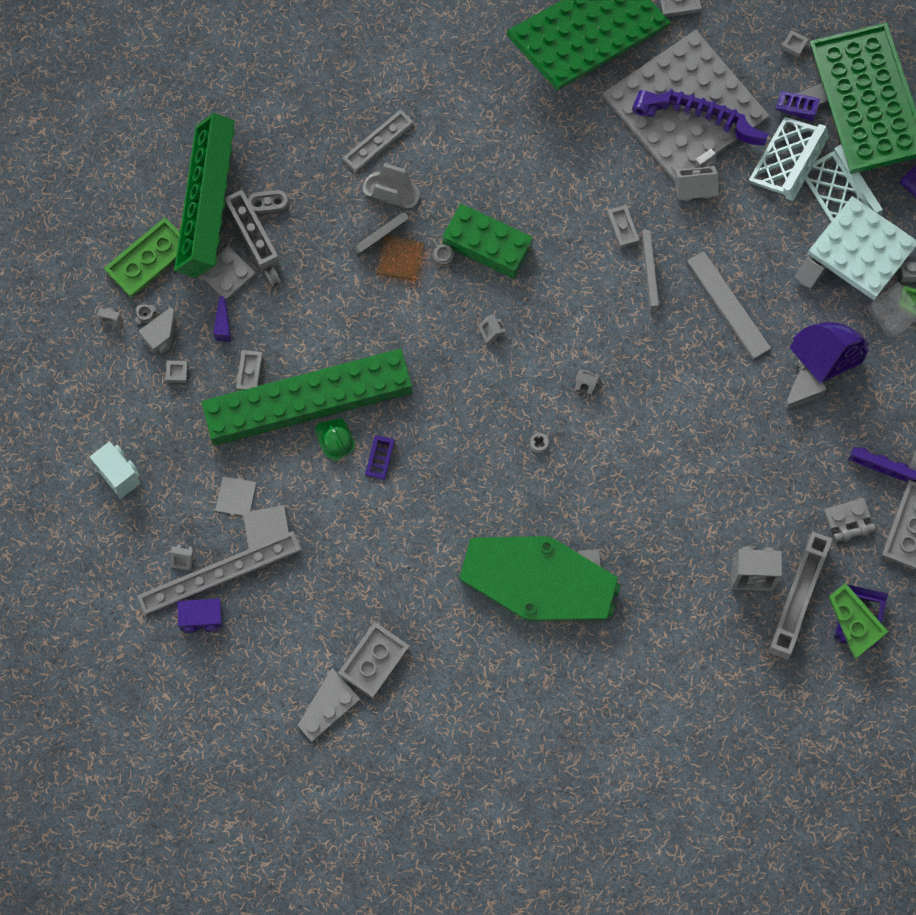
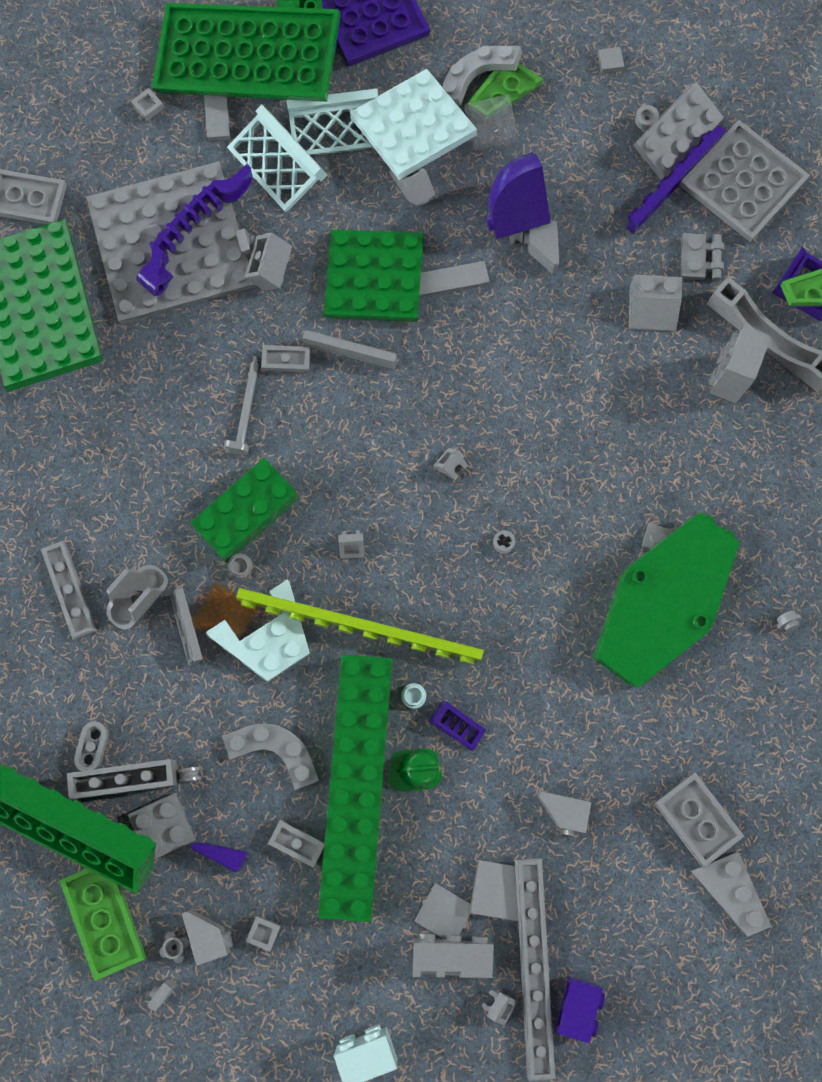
camera: 70 degrees left, 5 degrees up
(206, 507) = (452, 956): none -> light grey wedge
(320, 332) = (278, 740): none -> light grey plate
(342, 558) = (566, 812): none -> light grey slope
(390, 300) = (272, 646): none -> light aqua wing
(391, 417) = (413, 695): none -> light aqua plate
(428, 365) = (369, 629): none -> lime plate
(536, 218) = (238, 446): none -> light grey piece
(559, 683) = (788, 621): none -> light grey plate
(721, 267) = (374, 275): none -> green plate
(789, 493) = (655, 302): none -> light grey slope
(796, 111) = (221, 114): dark purple slope -> none

